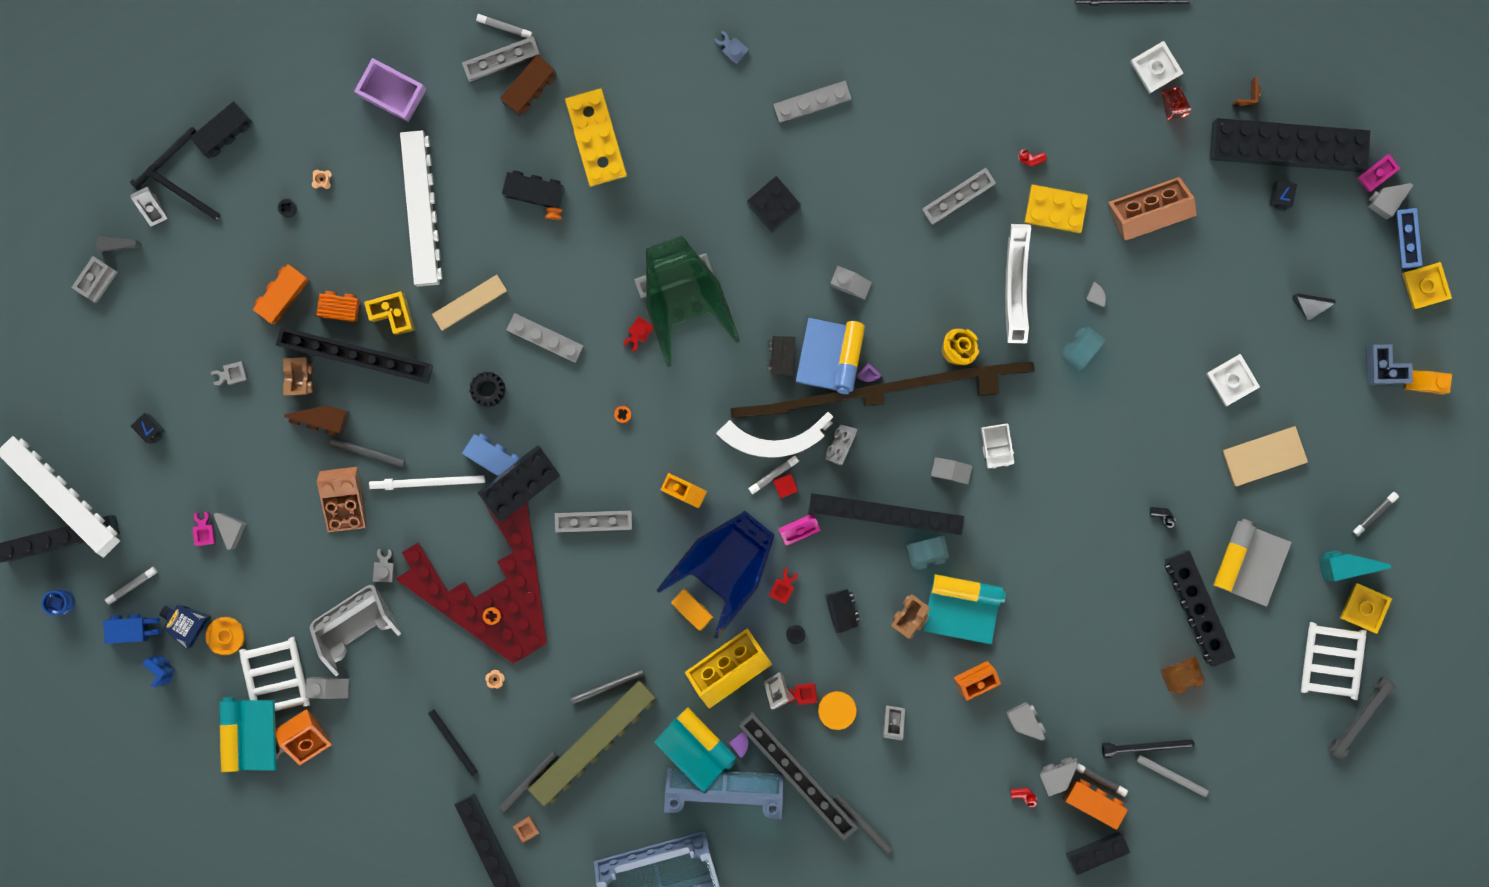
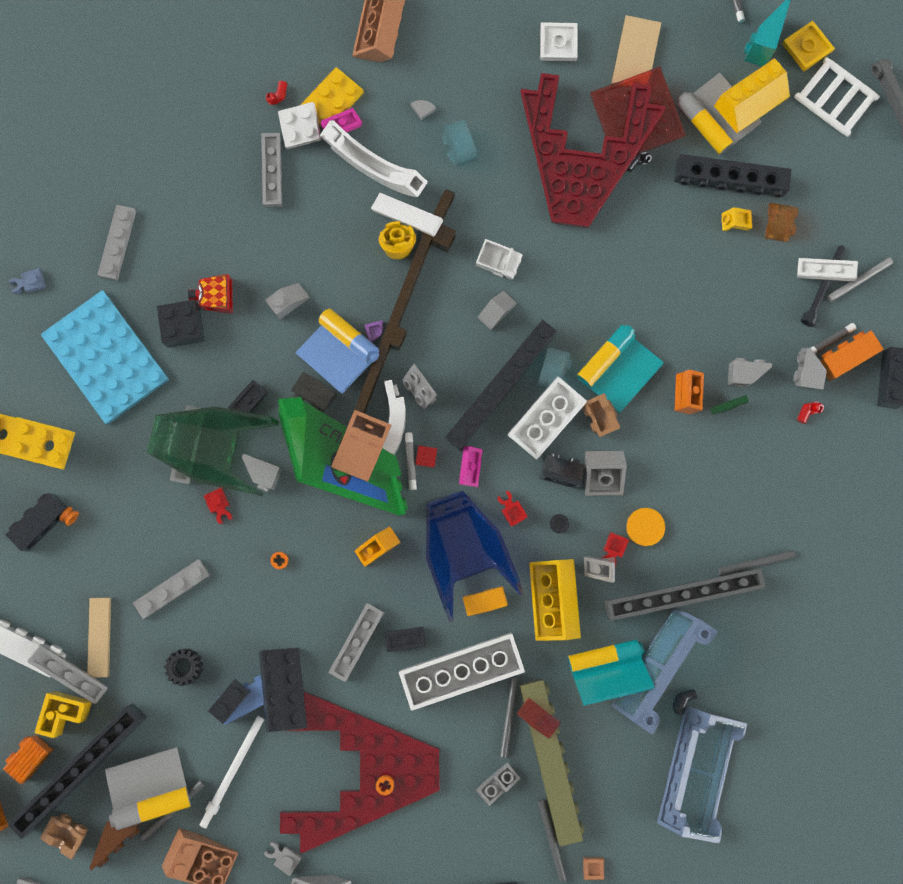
camera: 60 degrees left, 5 degrees down
(373, 421) = (147, 789): none -> light grey door
(426, 298) = (67, 674): none -> light grey plate
(483, 445) = (229, 701): none -> black plate
(494, 684) = (448, 816): light nougat plate -> none
(547, 709) = (497, 784): none -> light grey slope
(620, 560) = (405, 639): none -> black plate
(621, 711) = (538, 718): none -> clear red slope
(622, 624) = (461, 671): none -> white brick
(687, 354) = (262, 473): none -> light grey slope
(706, 155) = (104, 357): none -> medium azure plate
(707, 824) = (681, 700): none -> black arm
(737, 414) = (312, 446): none -> green piece
(740, 744) = (626, 628): medium lavender tile -> none
(743, 302) = (249, 398): none -> black plate
(759, 427) = (361, 445): none -> nougat slope
(817, 216) = (214, 294): none -> torso
(862, 648) = (604, 473): none -> light grey slope
(880, 570) = (547, 417): none -> white slope
(893, 723) = (685, 484): light grey slope -> none
(986, 722) = (729, 405): none -> dark green tile
(988, 341) = (407, 214): none -> white tile
(1013, 196) = (299, 125): none -> white plate
(1040, 233) = (346, 120): none -> dark pink plate
(1111, 475) = (582, 181): none -> dark red wing
(1161, 635) = (737, 219): none -> yellow bracket
(1162, 741) = (827, 269): none -> white tile
(1205, 491) = (613, 104): none -> clear red plate
(1284, 586) = (754, 96): none -> yellow slope

